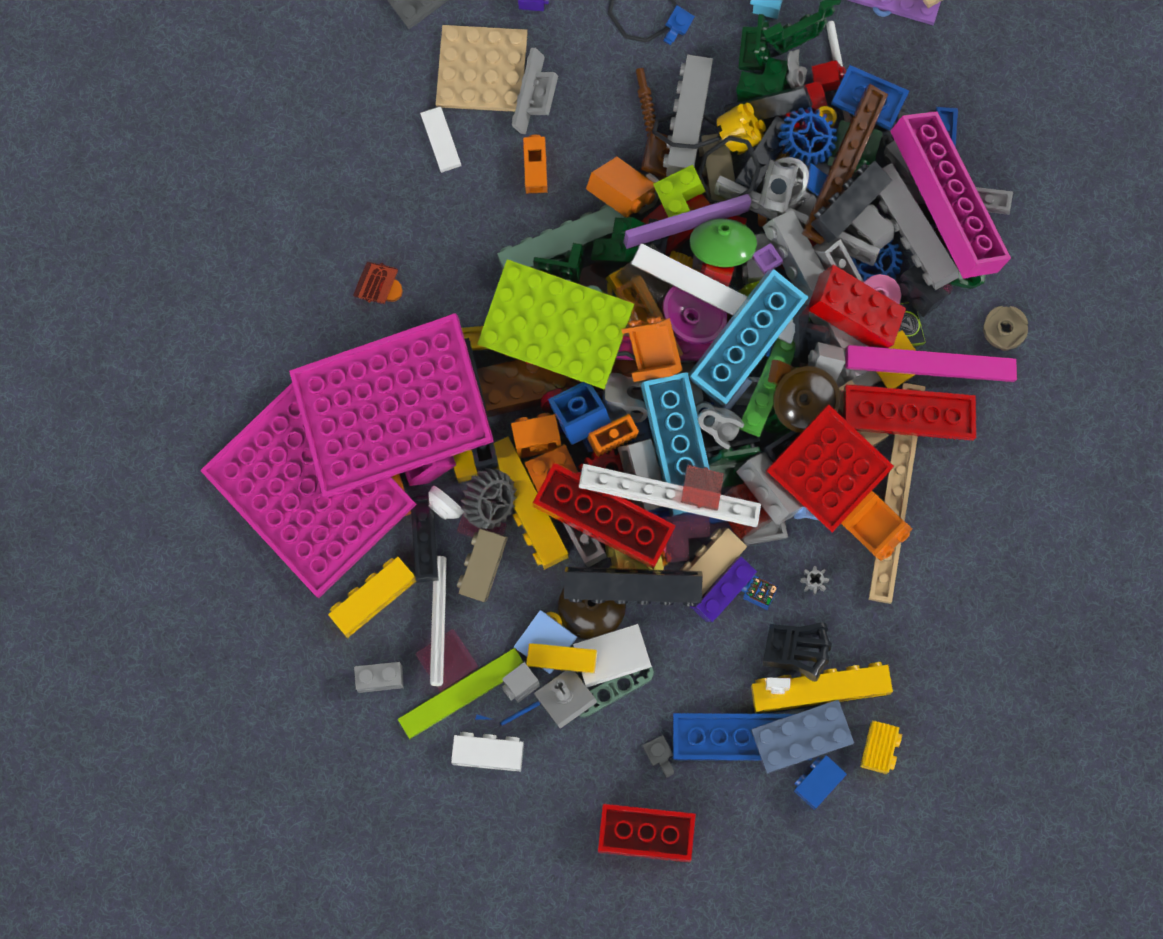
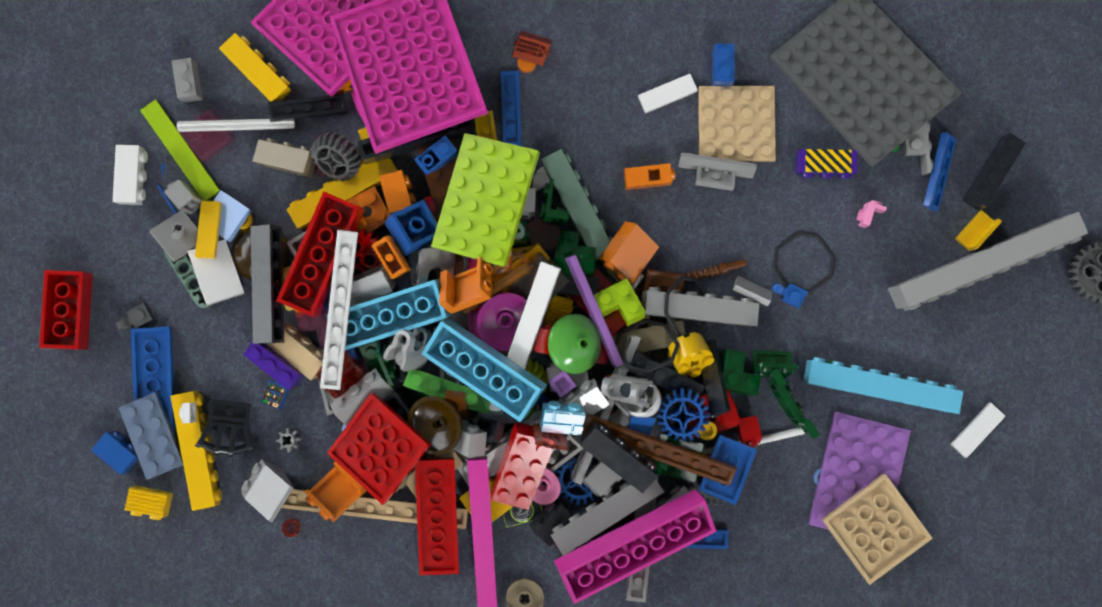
camera: 80 degrees right, 10 degrees up
(415, 76) = (723, 65): none -> blue brick
(429, 310) = (510, 107): none -> blue tile
(443, 504) = (336, 120): white piece -> none
(498, 380) = (437, 156): none -> blue slope
(672, 62) = (752, 291): none -> light grey tile
(702, 487) = (347, 337): clear red piece -> none
(796, 73) = (750, 402): light grey plate -> none
(806, 257) = (562, 418): none -> medium azure brick
(826, 269) = (550, 440): none -> clear red piece
(871, 597) = (267, 489): none -> slope
(917, 577) = (296, 529): none -> clear red bush

